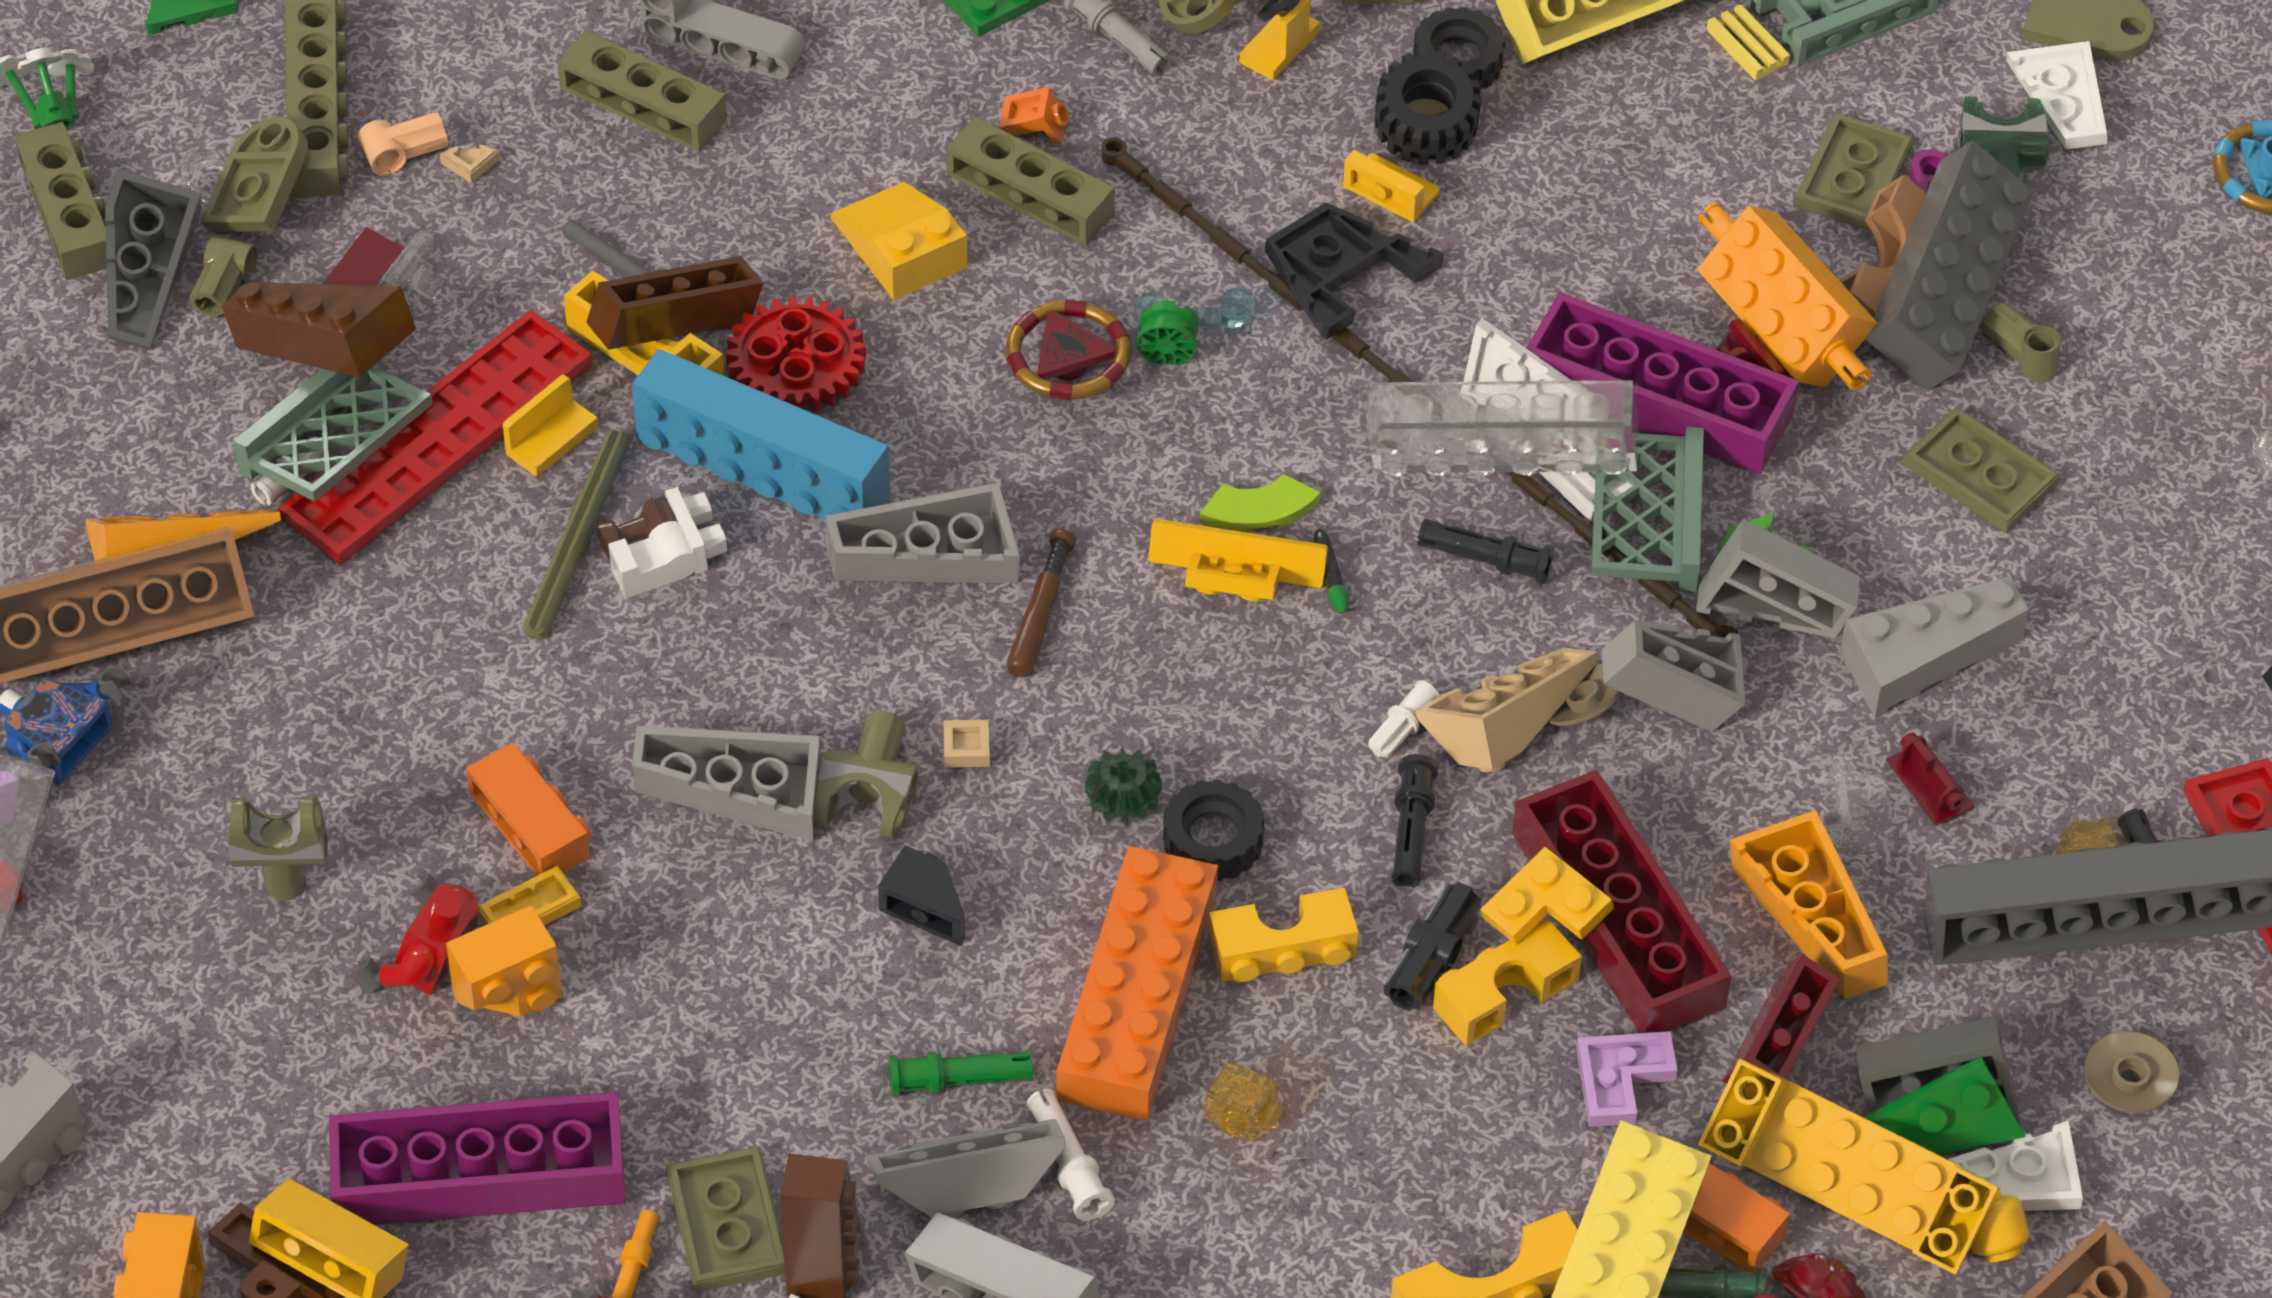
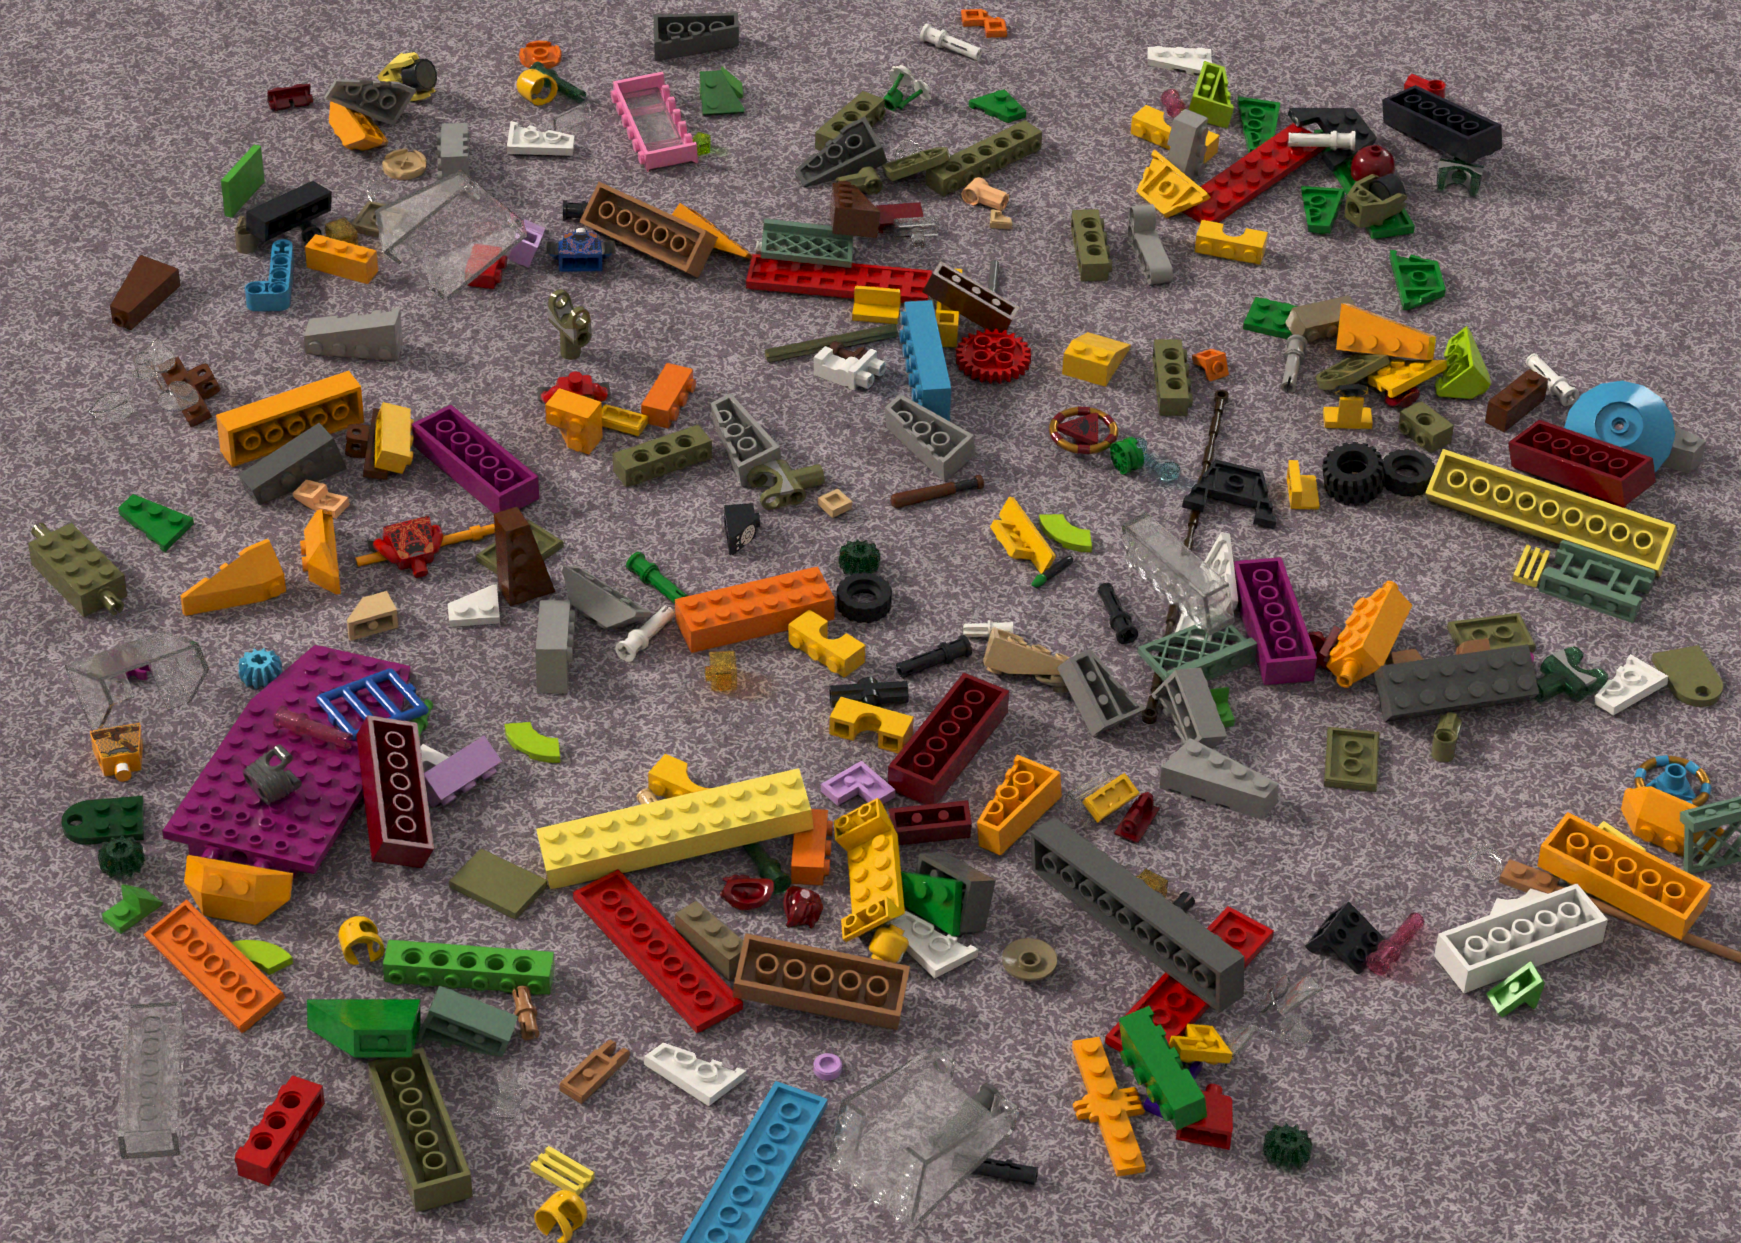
camera: 55 degrees right, 10 degrees down
(673, 840) = (662, 455): none -> olive brick
(1544, 888) = (919, 703): yellow plate -> none
(1878, 784) = (1111, 797): none -> yellow plate

